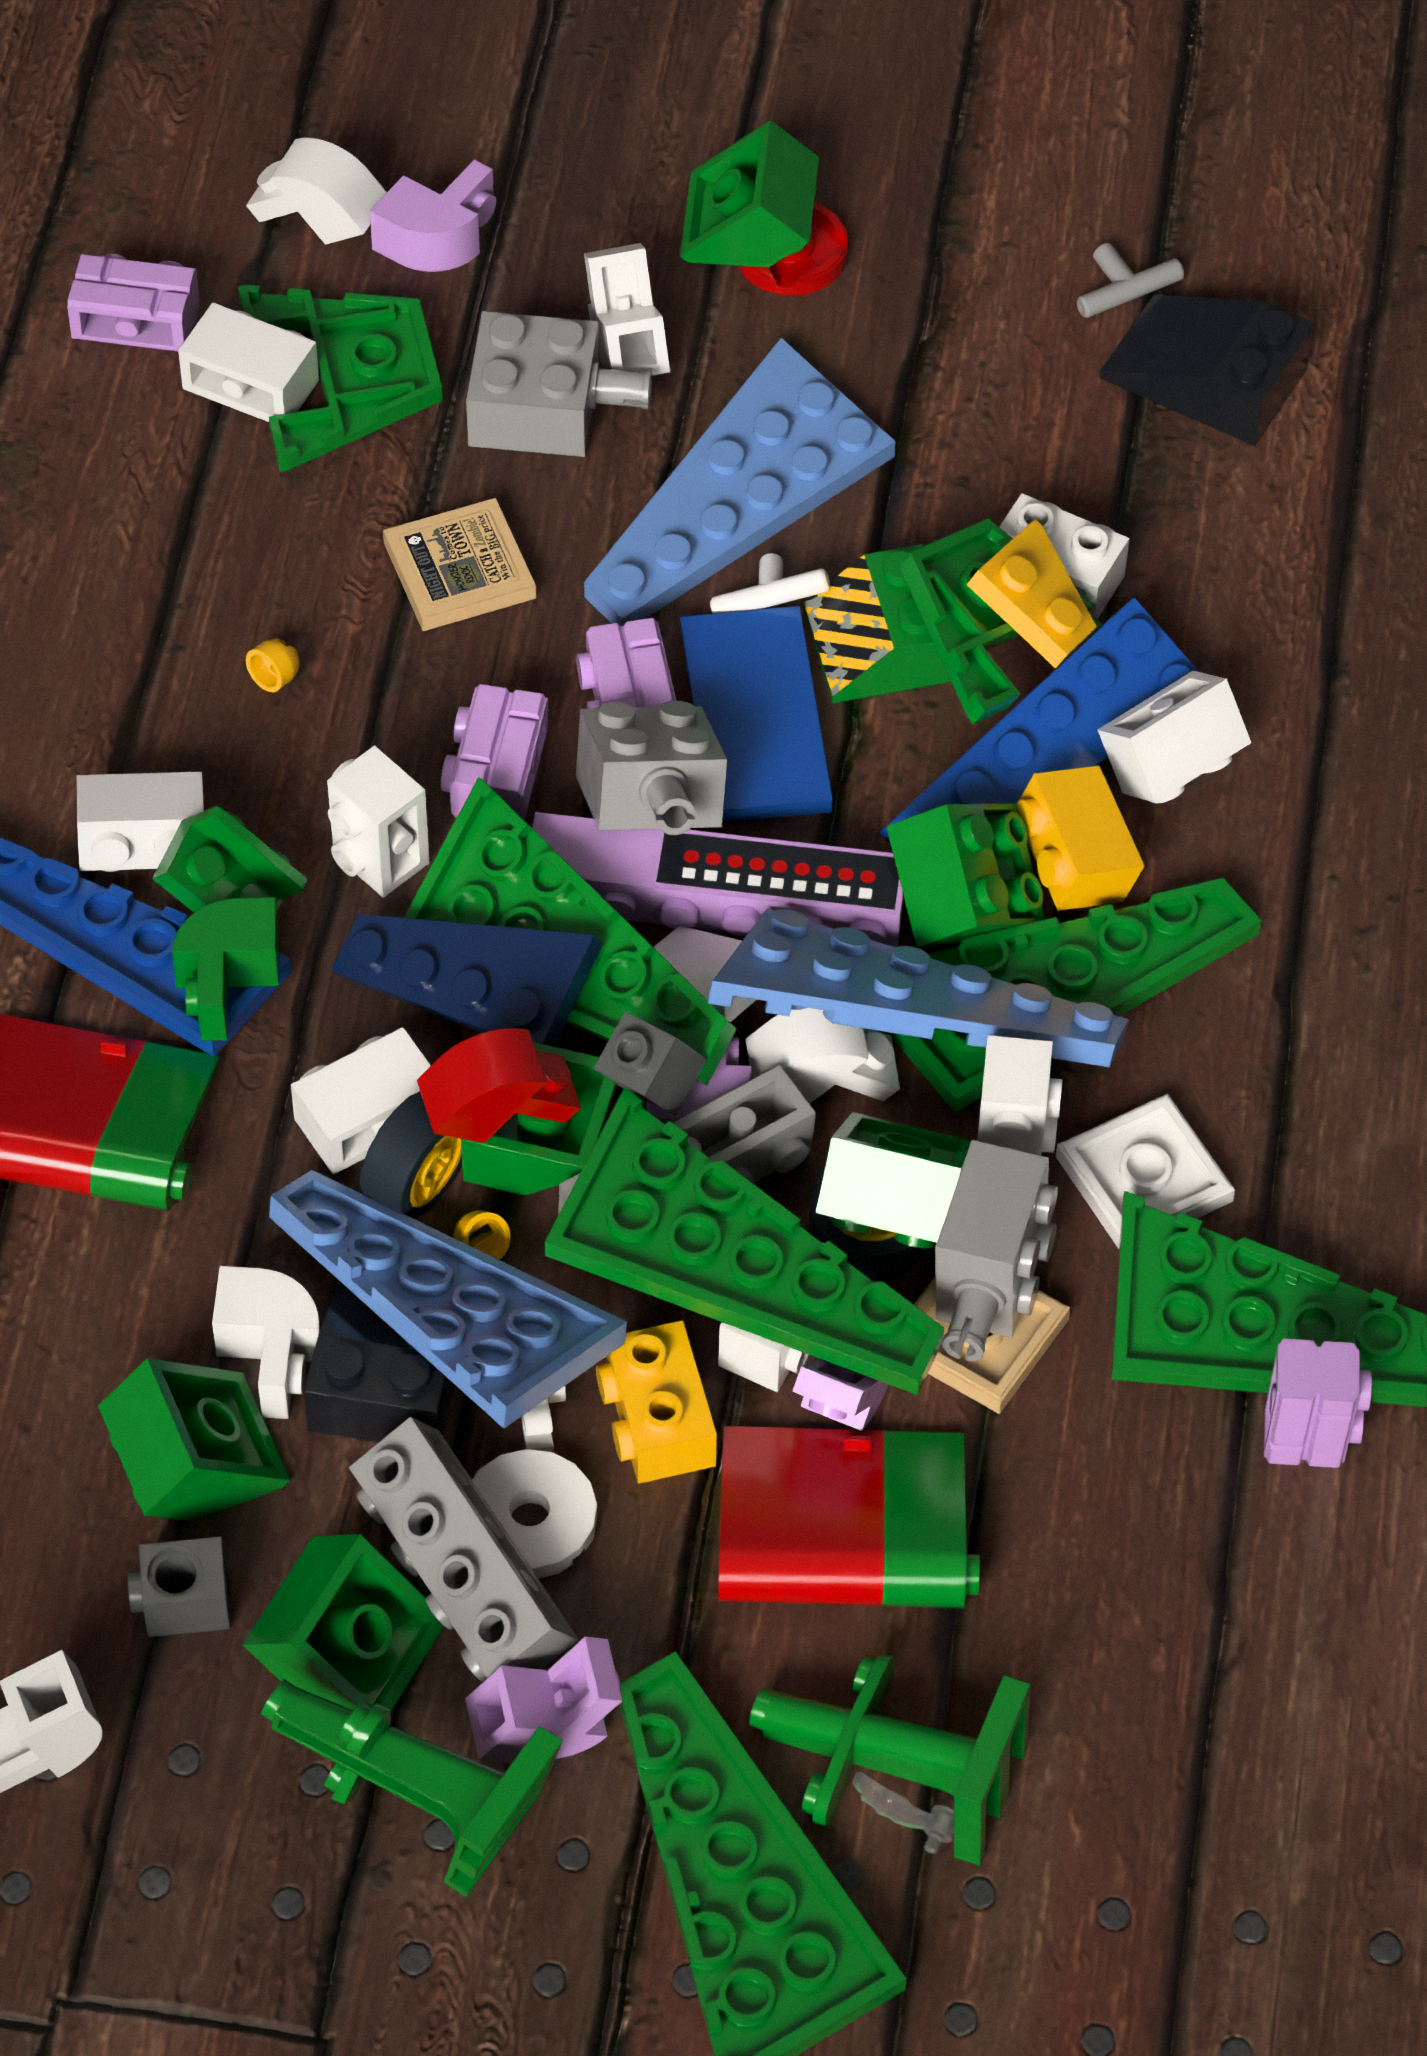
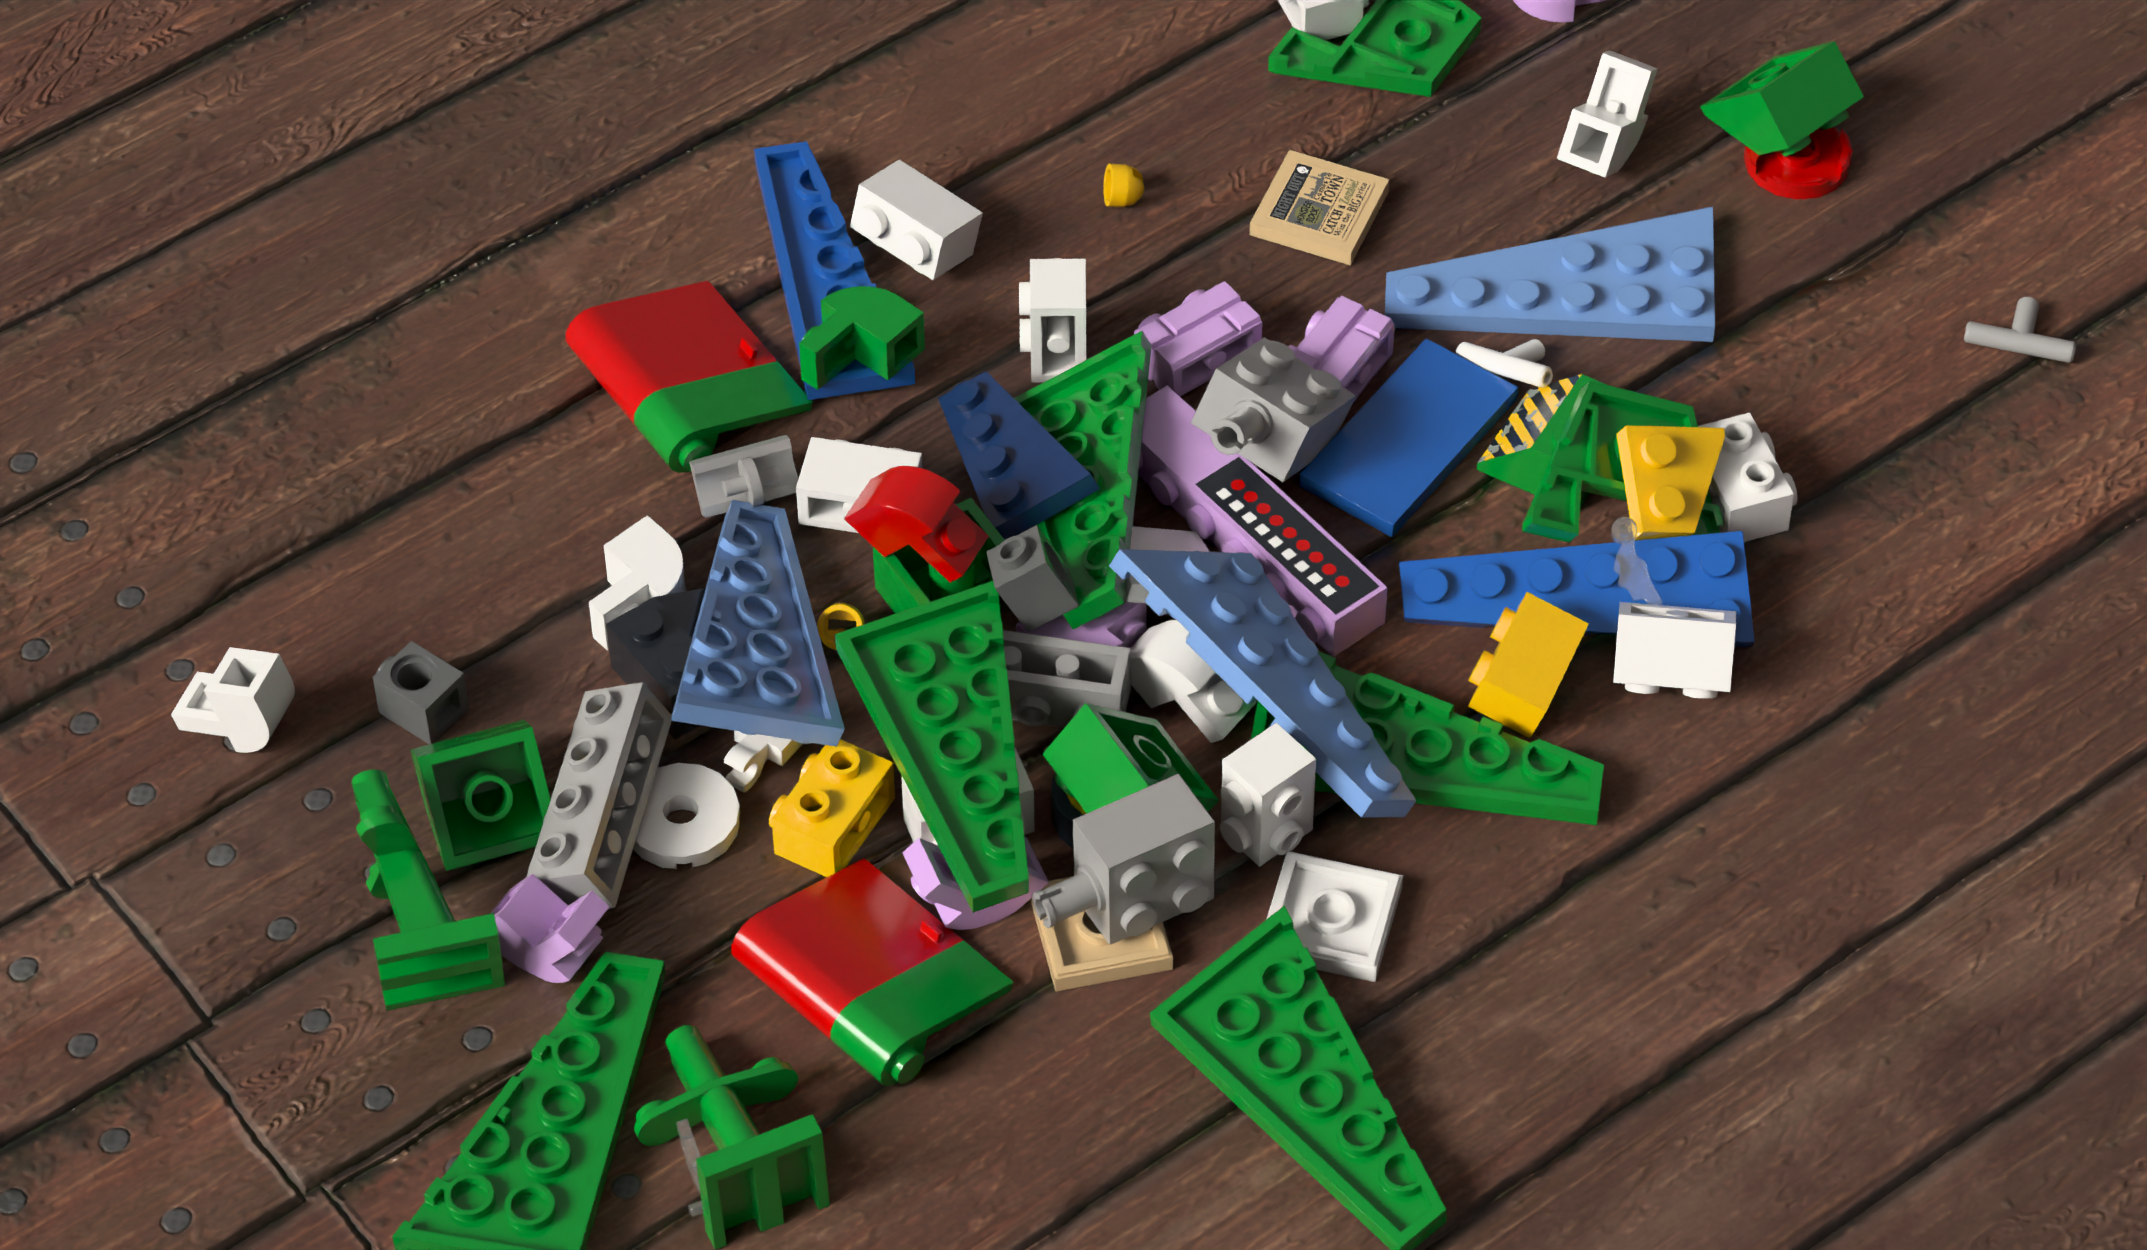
camera: 45 degrees right, 5 degrees down
(191, 1440) = (523, 611): green slope -> none
(222, 860) = (926, 275): green bracket -> none
(255, 1163) = (745, 474): none -> light grey hips
(409, 1163) = (829, 548): black wheel -> none
(539, 384) = (1499, 124): light grey brick -> none
(965, 872) = (1417, 627): green slope -> none
(1076, 692) = (1630, 568): none -> clear piece
(1214, 360) = (2020, 432): black slope -> none
(1315, 1403) = (1246, 1130): lavender brick -> none

